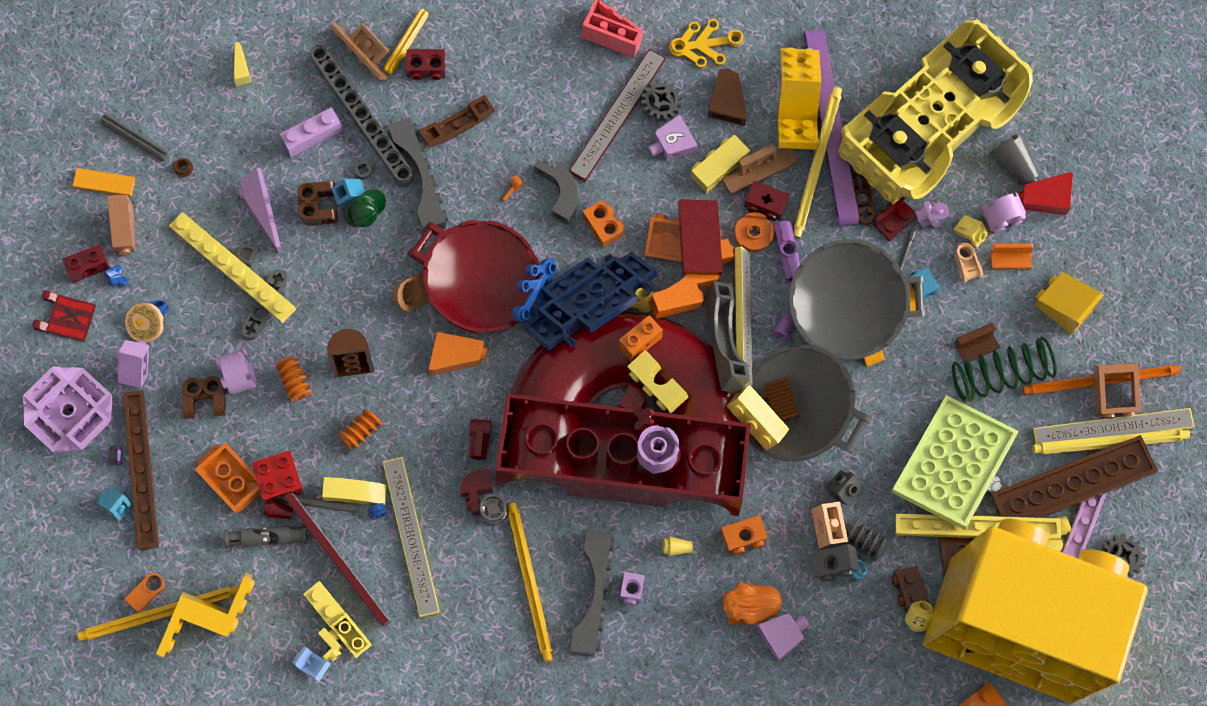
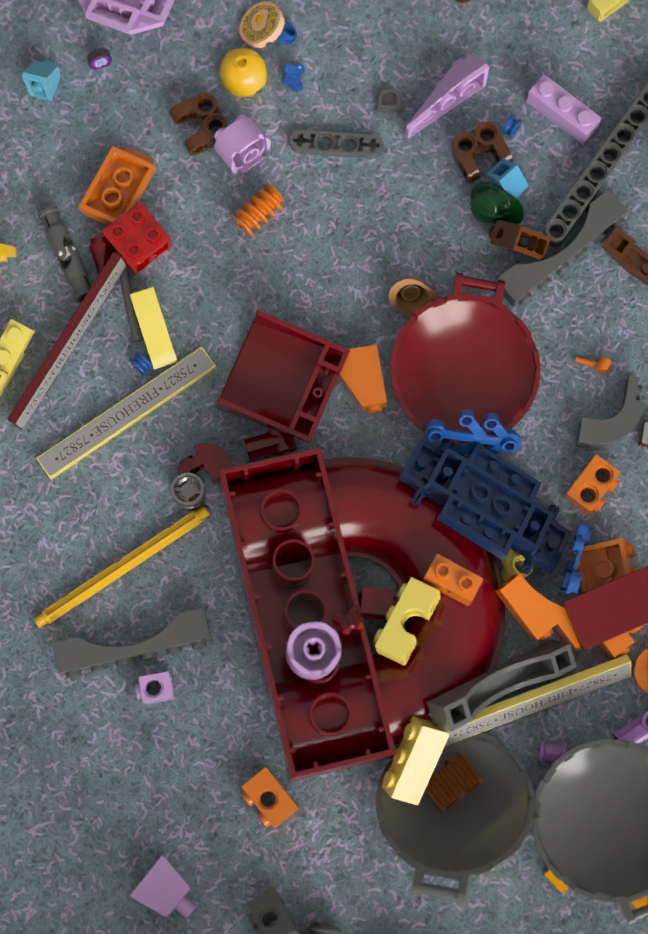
camera: 75 degrees right, 5 degrees up
(132, 363) = (208, 30): lavender brick -> none
(141, 470) = (93, 91): reddish brown plate -> none
(175, 352) = (243, 72): none -> yellow cylinder
(195, 317) = (291, 76): none -> blue piece
(232, 267) = (364, 91): light yellow plate -> none
(307, 174) = (511, 126): none -> blue bush
(349, 353) = (303, 252): reddish brown brick -> none
(357, 172) = (537, 182): dark grey bush -> none
(359, 429) = (228, 306): orange piece -> none
(399, 201) = (508, 235): none -> reddish brown torso
(434, 409) = (282, 377): none -> dark red windscreen
(646, 245) = (571, 578): none -> blue plant
(676, 546) = (226, 721): light yellow cone -> none
(751, 603) = (185, 836): orange hair -> none
(829, 525) = (318, 898): light nougat brick -> none
(844, 487) = (374, 900): dark grey brick -> none

